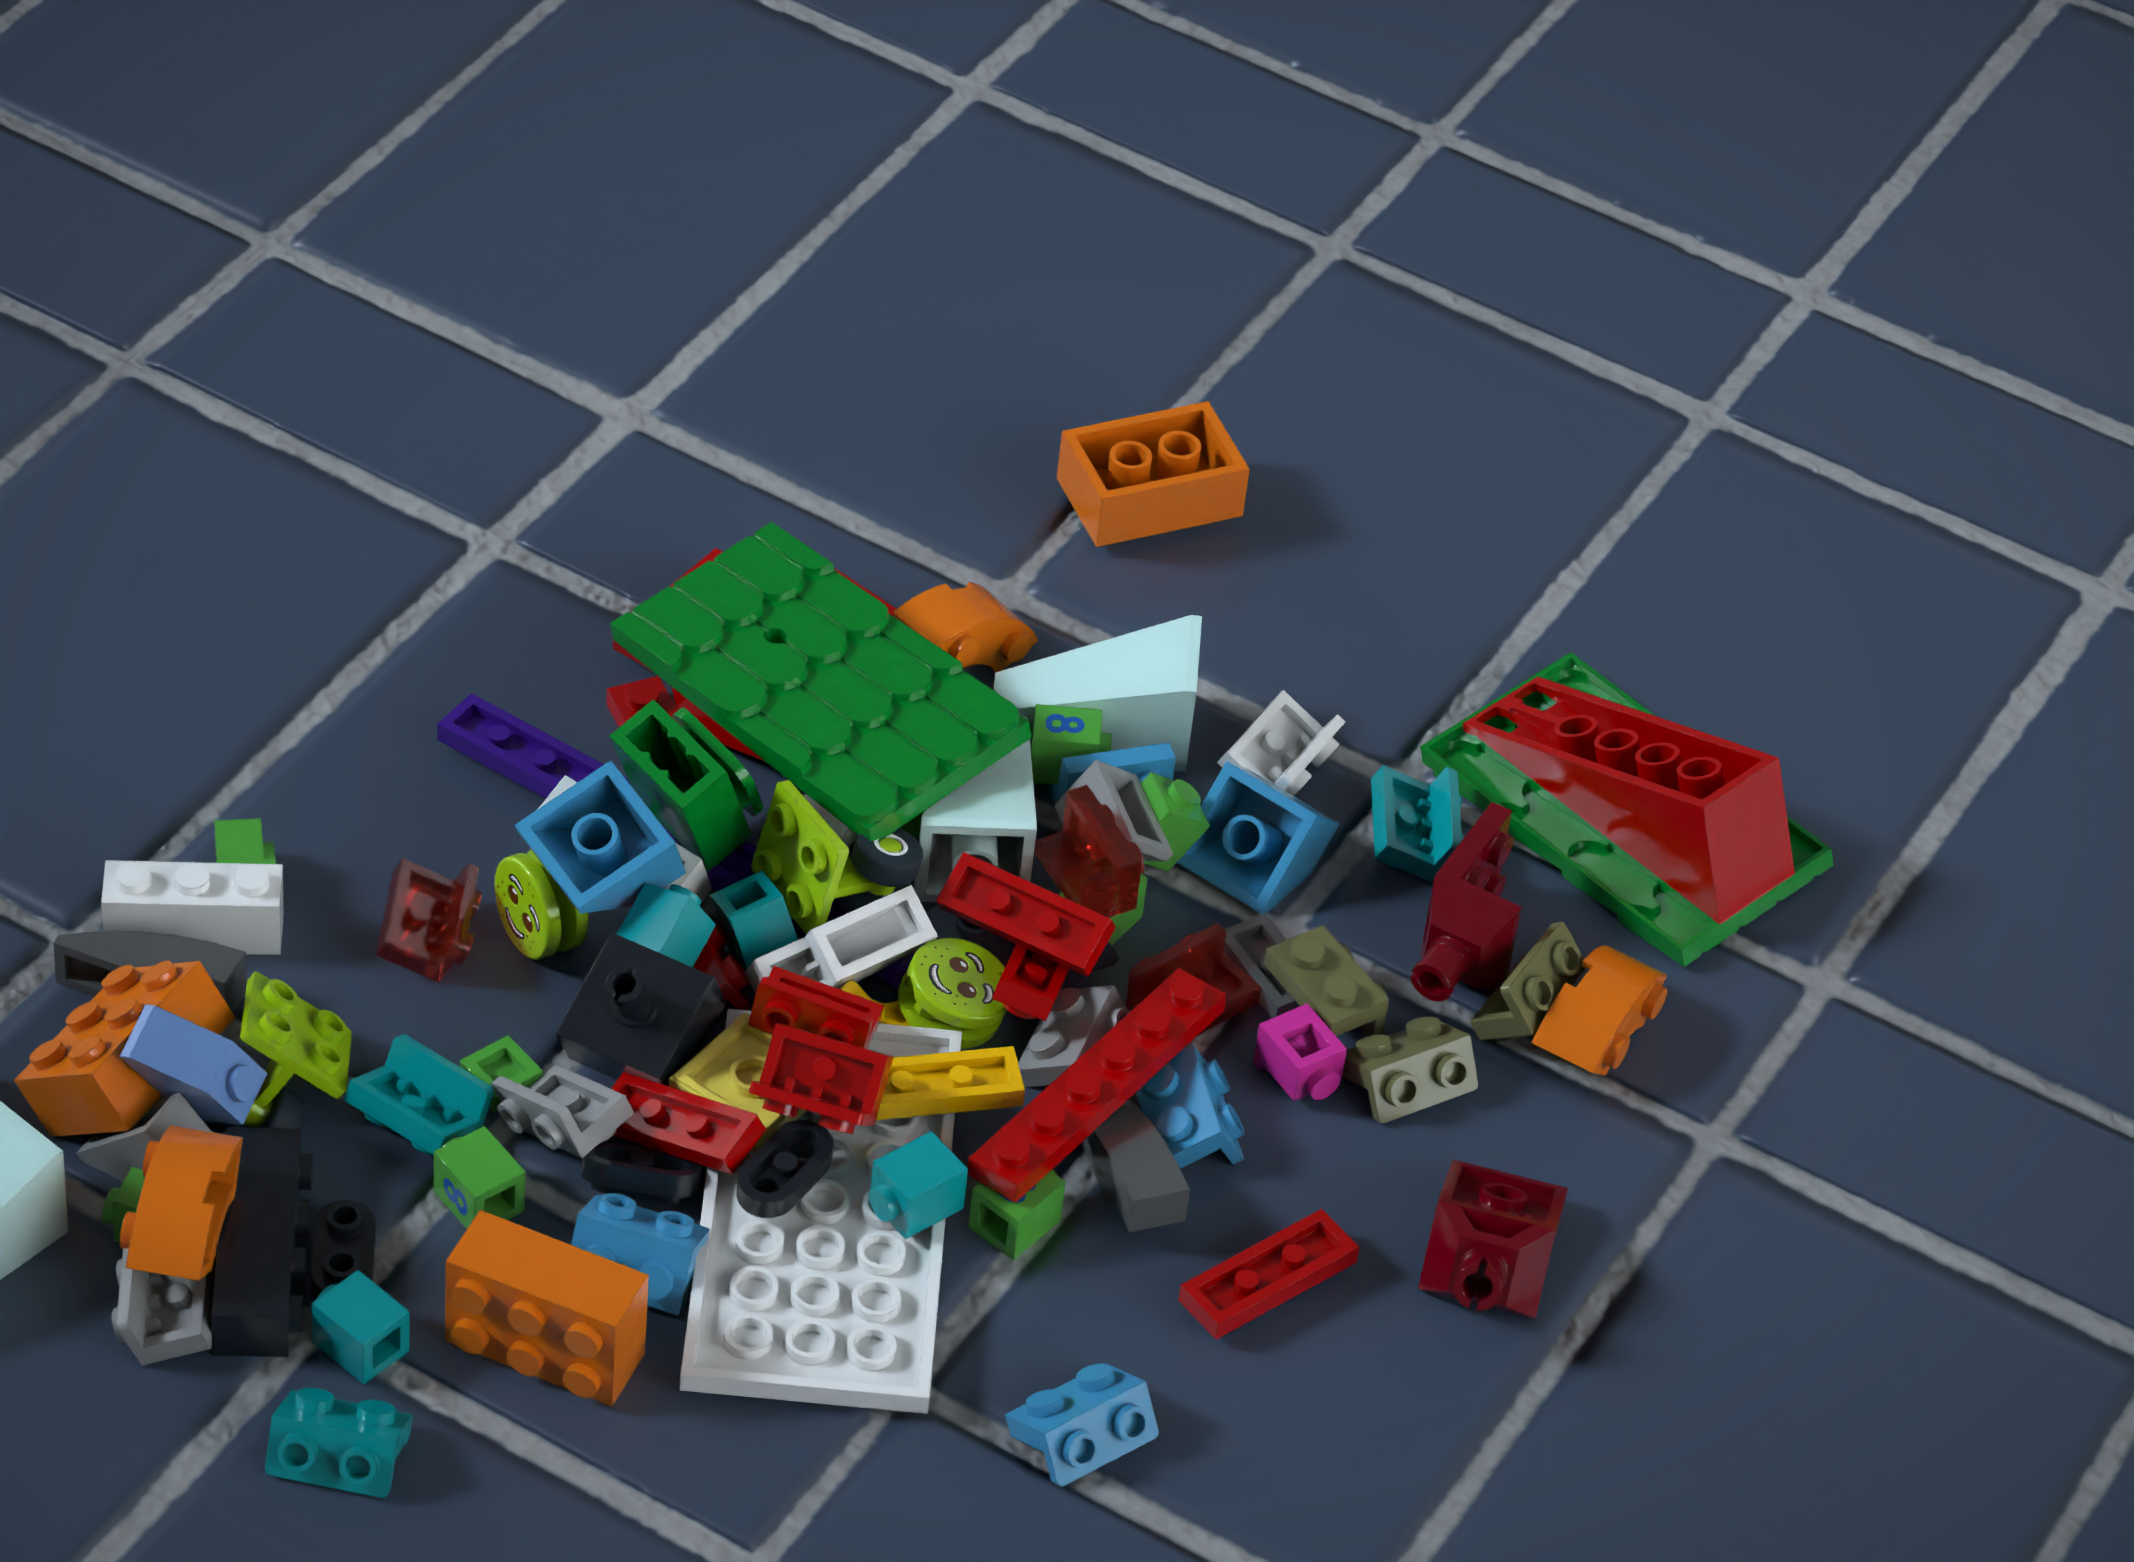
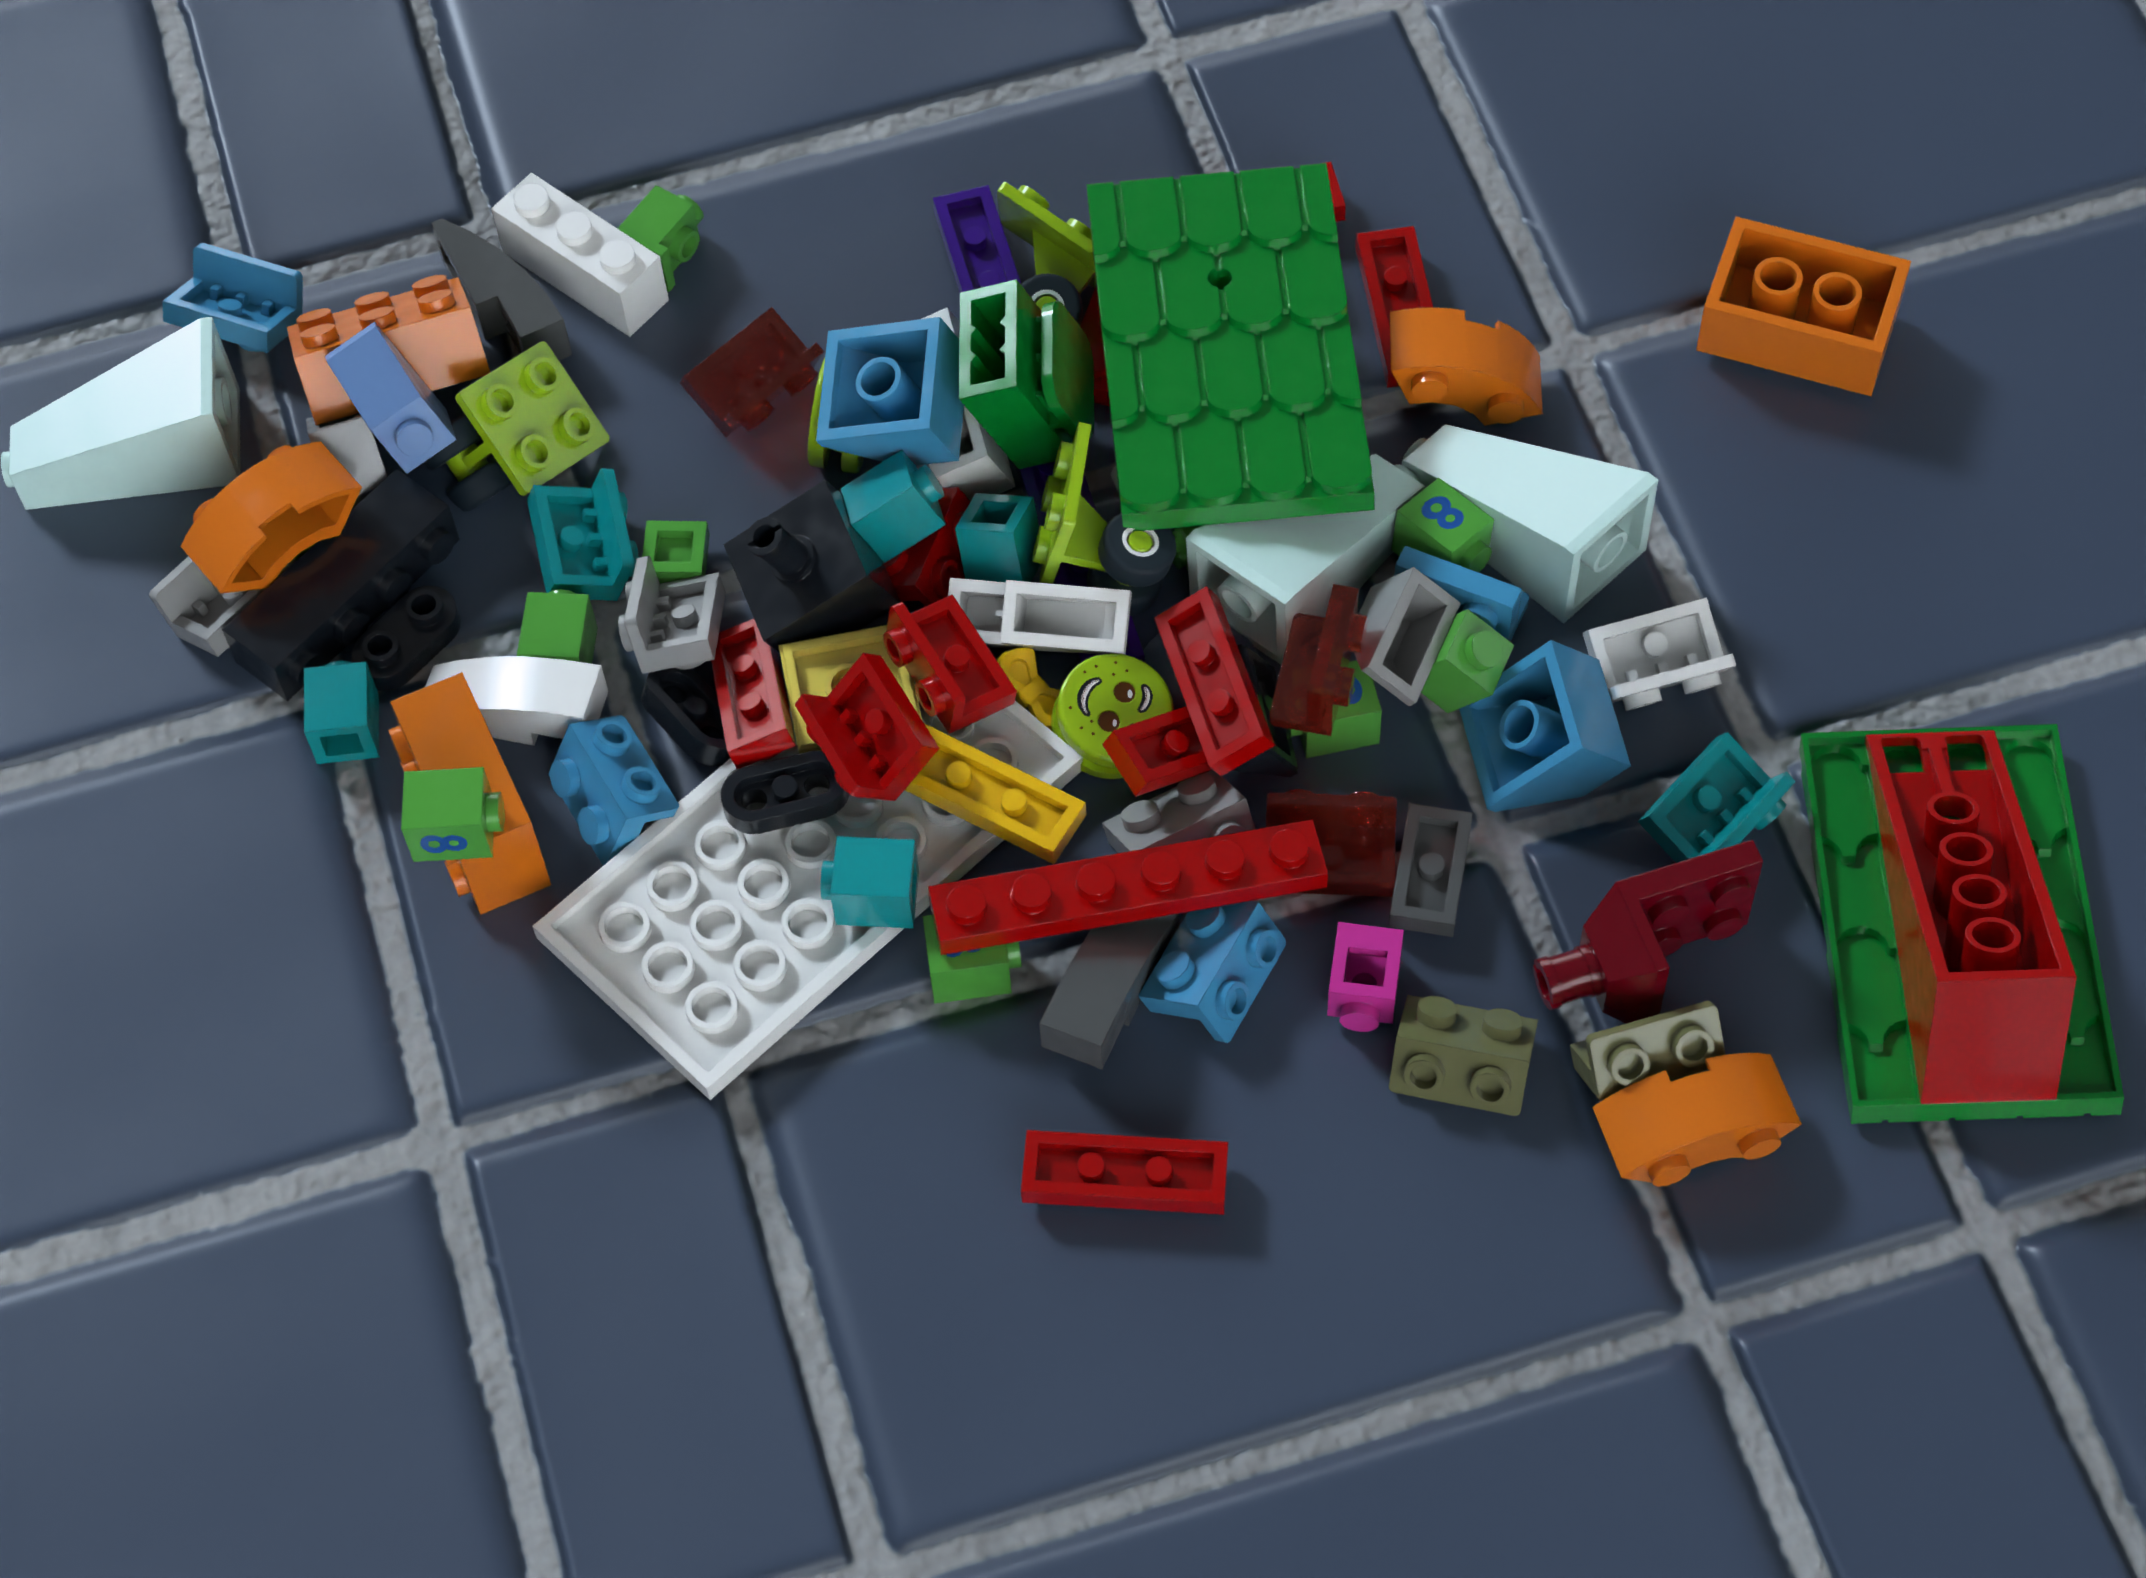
camera: 50 degrees right, 15 degrees up
(336, 1441) = (234, 800): teal bracket -> none
(535, 1200) = (530, 693): none -> white slope
(579, 696) = (1060, 248): none -> lime plate
(598, 1293) = (450, 814): none -> bright green brick
(1086, 1421) = (823, 1202): dark azure bracket -> none
(1328, 979) = (1454, 919): olive bracket -> none
(1492, 1238) = (1356, 1274): dark red plate -> none

